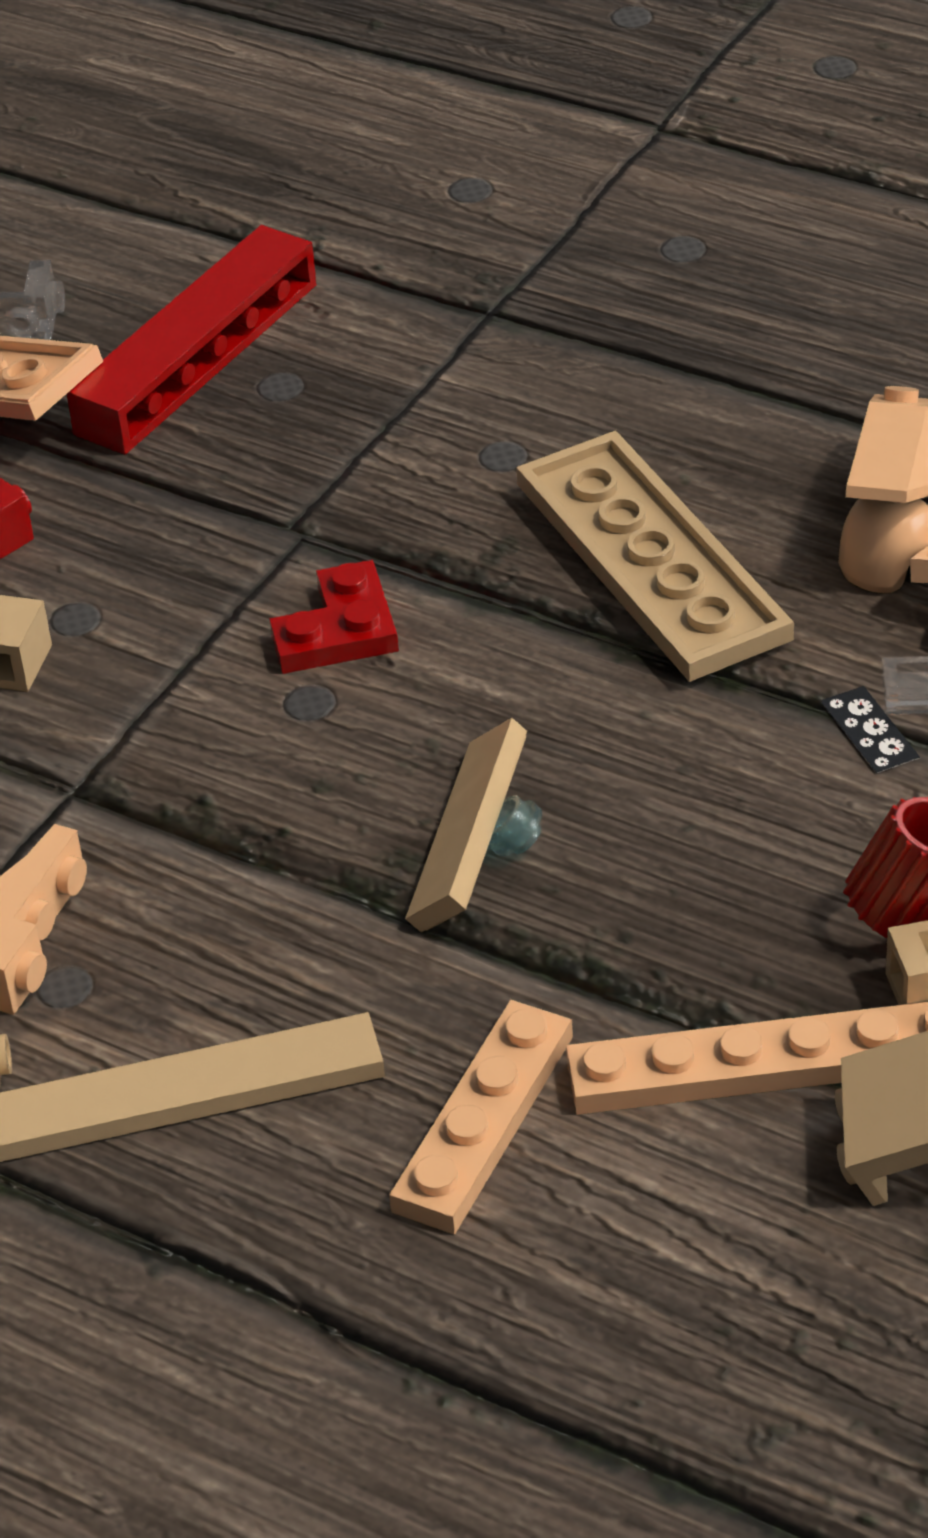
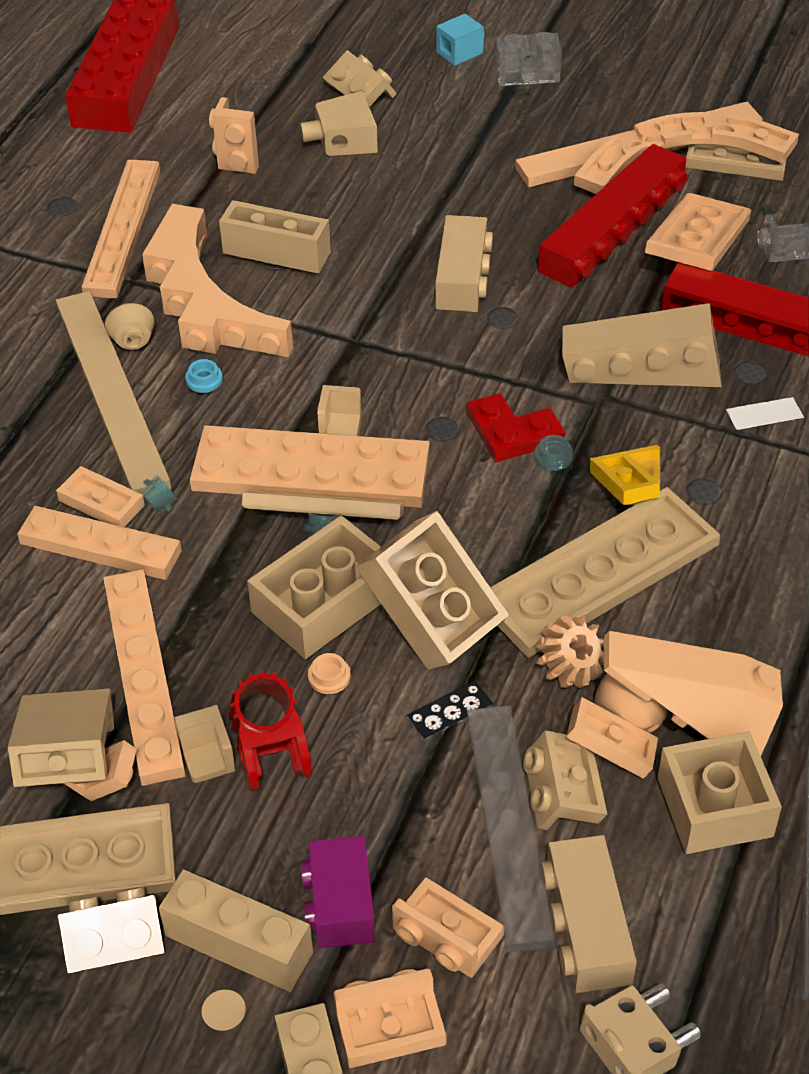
camera: 80 degrees right, 5 degrees up
(119, 969) = (203, 376): none -> medium azure plate
(237, 451) = (645, 349): none -> tan wedge
(277, 804) = (340, 410): none -> tan panel
(361, 854) = (310, 463): none -> light nougat plate
(368, 383) = (764, 413): none -> white sticker
(389, 1104) = (100, 497): none -> light nougat plate
(404, 1021) = (158, 494): none -> clear light blue plate
(410, 577) = (554, 453): none -> clear light blue plate
(486, 498) = (630, 474): none -> yellow wing
(659, 815) = (315, 588): none -> tan brick
(714, 675) = (432, 591): none -> tan brick
(806, 836) = (329, 674): none -> light nougat plate
(812, 577) = (571, 651): none -> light nougat gear

